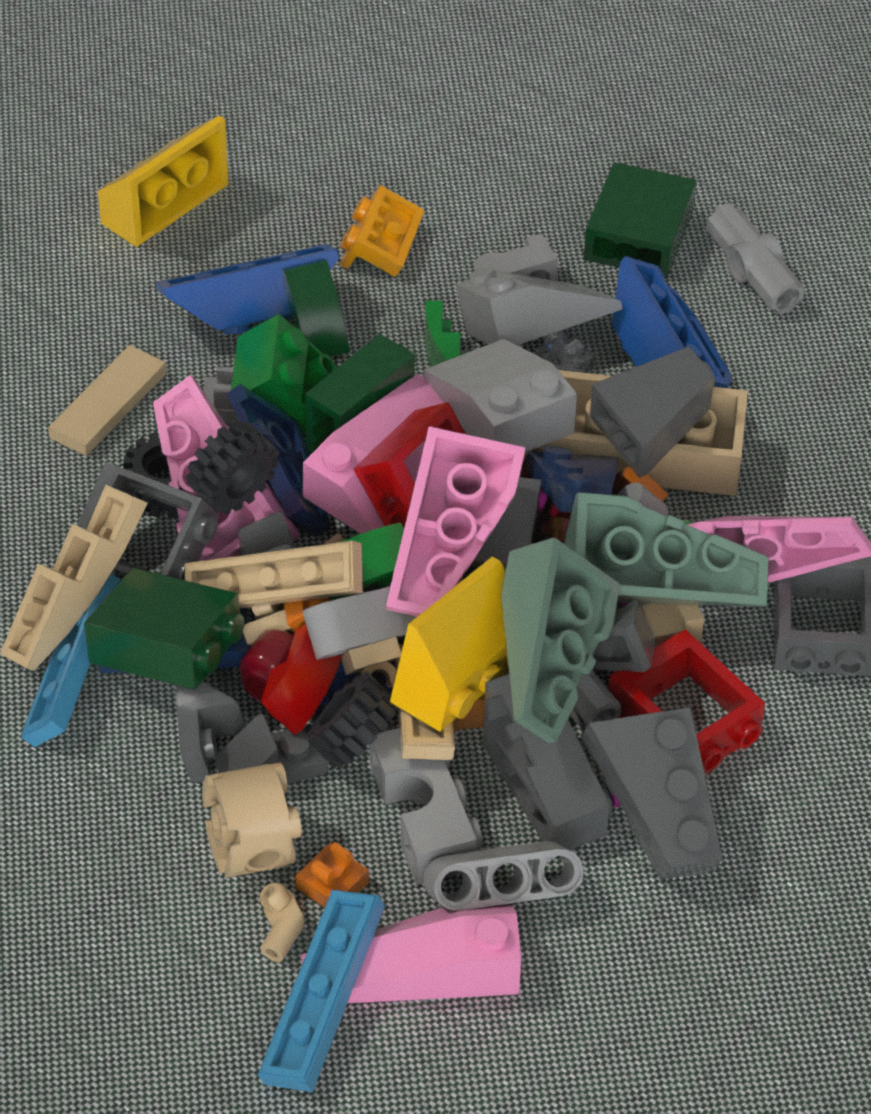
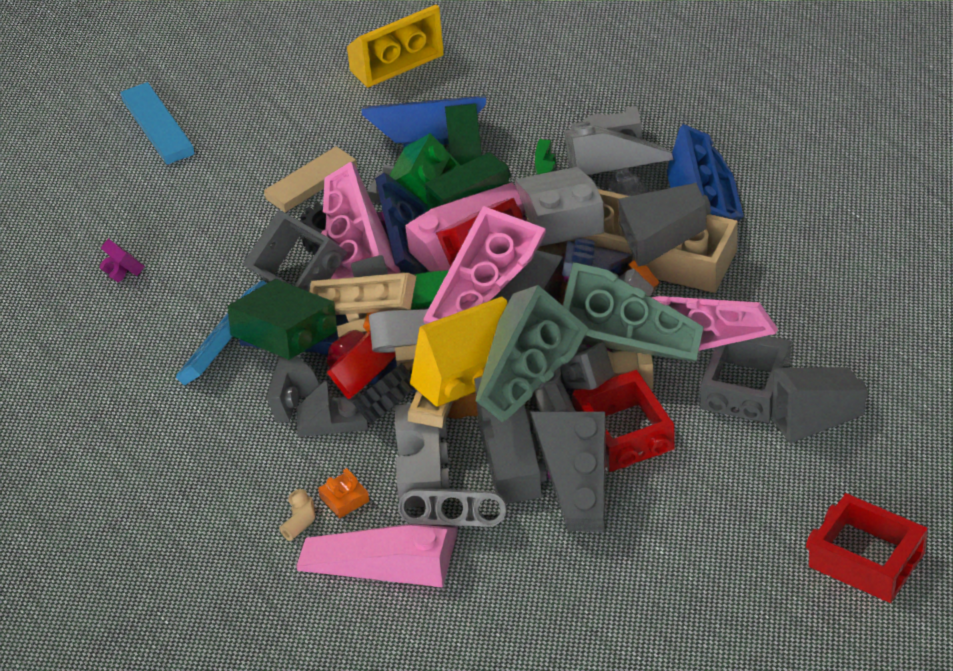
camera: 20 degrees right, 5 degrees down
(63, 594) = (241, 280): tan slope -> none
(232, 467) = (346, 210): black tyre -> none
(250, 820) = (297, 445): tan brick -> none
(321, 991) = (306, 560): dark azure tile -> none
(382, 231) = (532, 94): light orange bracket -> none
(640, 217) = (715, 104): dark green brick -> none
(755, 258) = (787, 140): light grey piece -> none

